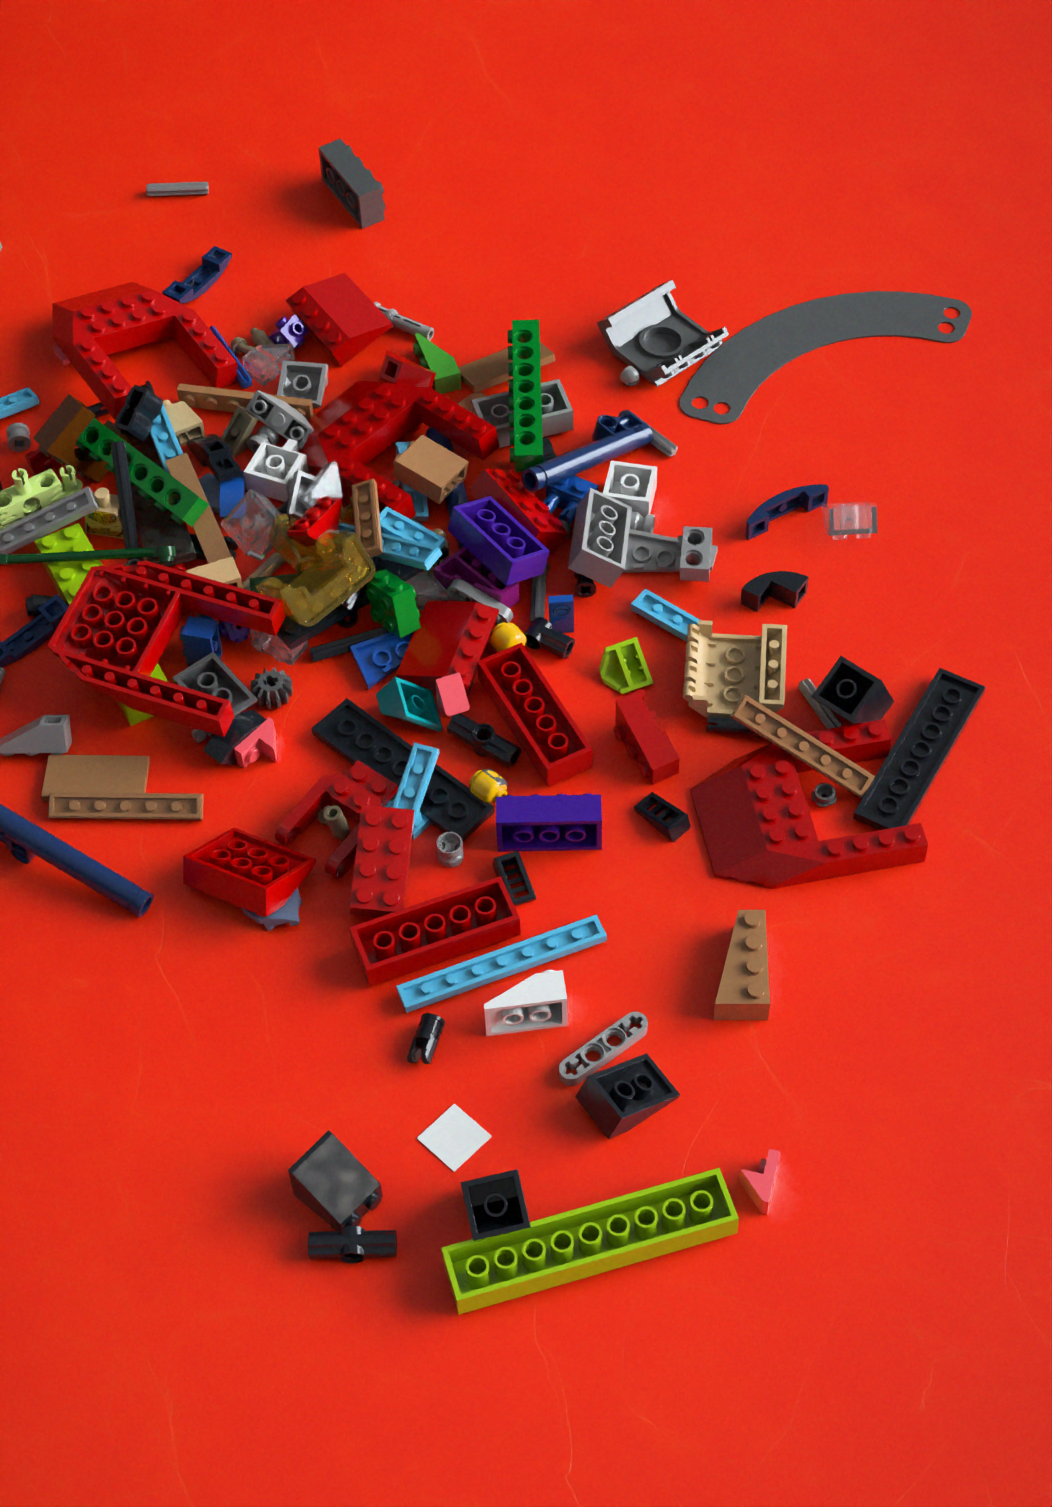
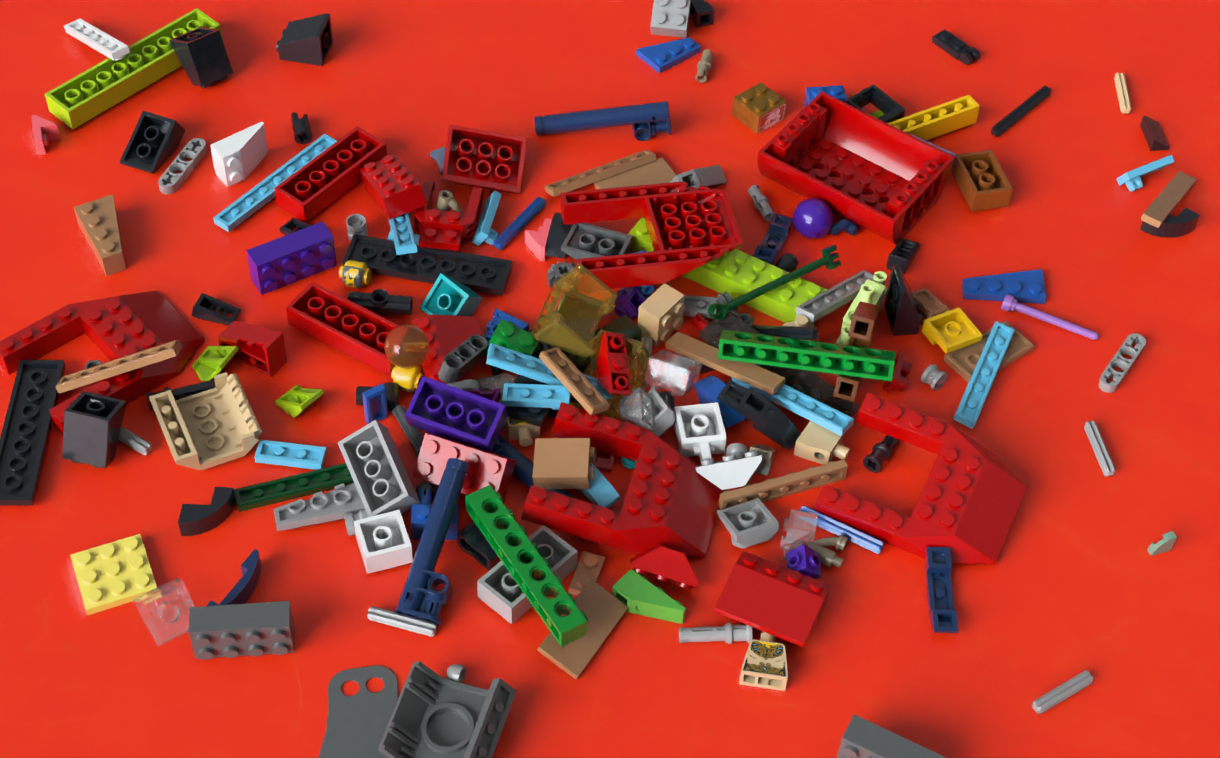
camera: 145 degrees right, 5 degrees down
(138, 413) = (837, 394): black brick -> none
(264, 783) = (519, 223): none -> blue axle
(293, 795) = (484, 232): none -> medium azure hinge
(352, 1244) = (274, 27): black piece -> none
(385, 284) = (765, 664): none -> tan torso
(450, 605) = (462, 358): none -> dark grey beam
(451, 695) = (420, 306): coral slope -> none
(454, 1137) = (254, 97): white sticker -> none
(499, 633) = (406, 347): none -> clear orange piece
(625, 1310) = (97, 39): none -> white plate
(677, 590) = (292, 487): none -> dark green tile
(694, 746) = (213, 361): none -> lime slope
(696, 554) = (289, 499): light grey brick -> none
(792, 459) = (241, 630): none -> dark grey brick
(884, 577) = (113, 574): none -> light yellow plate

